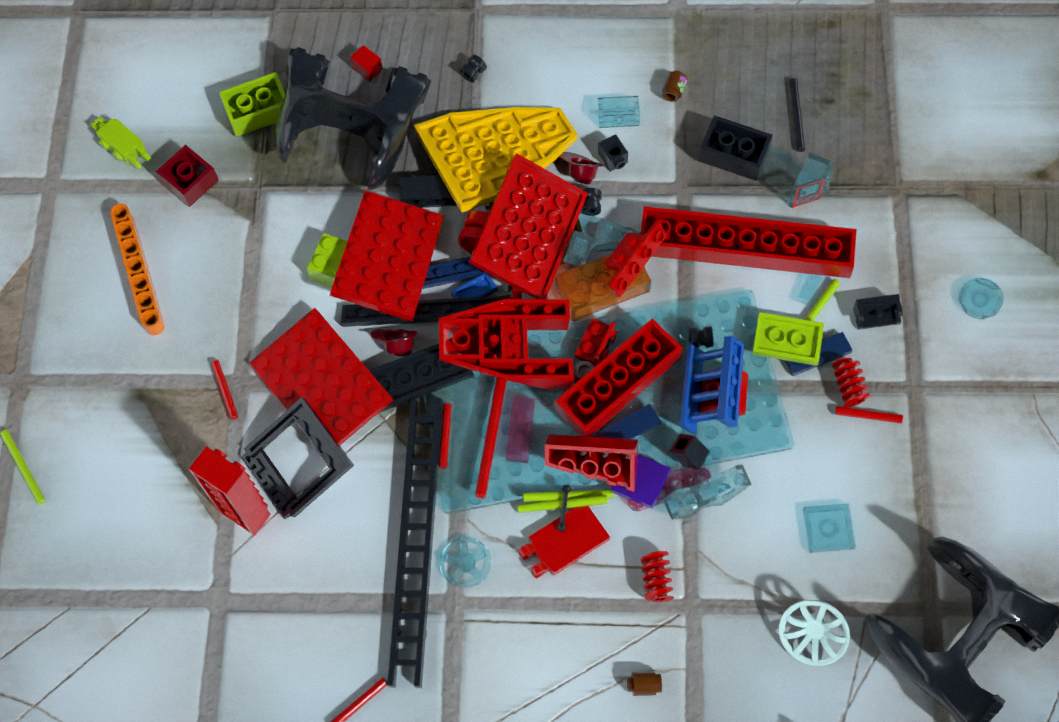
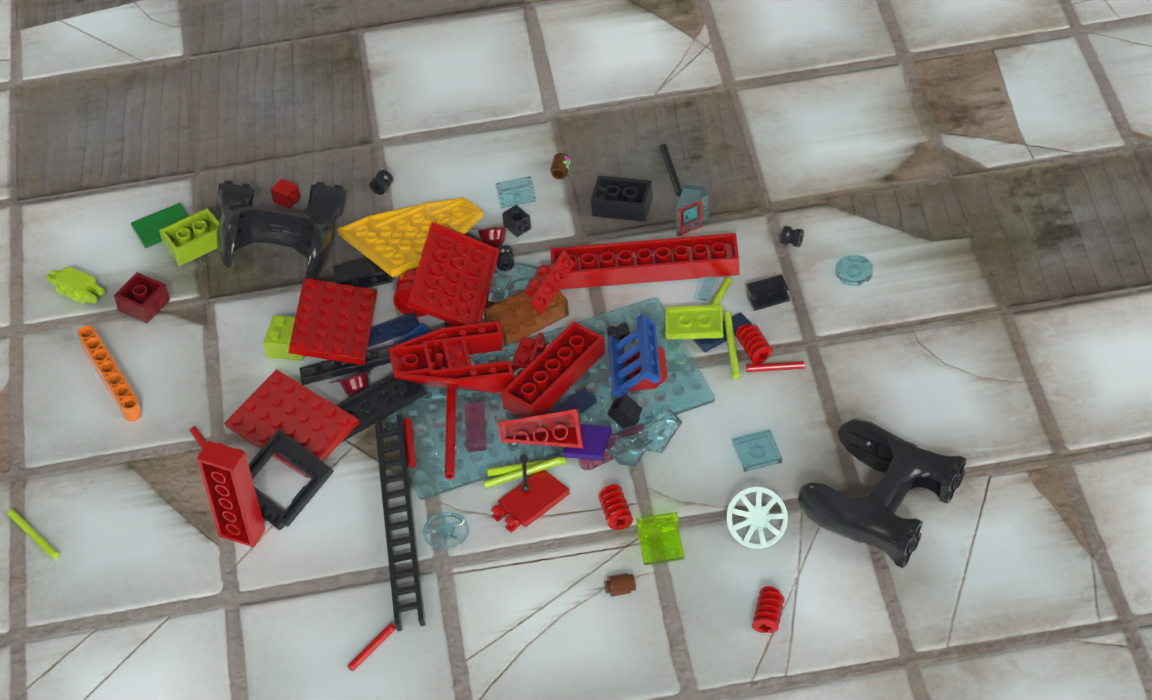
camera: 10 degrees left, 20 degrees down
(224, 75) = (148, 227): none -> green tile
(699, 634) = (659, 538): none -> clear neon green bracket
(824, 380) = (731, 345): none -> lime bar
(919, 238) = (792, 236): none -> black wheel

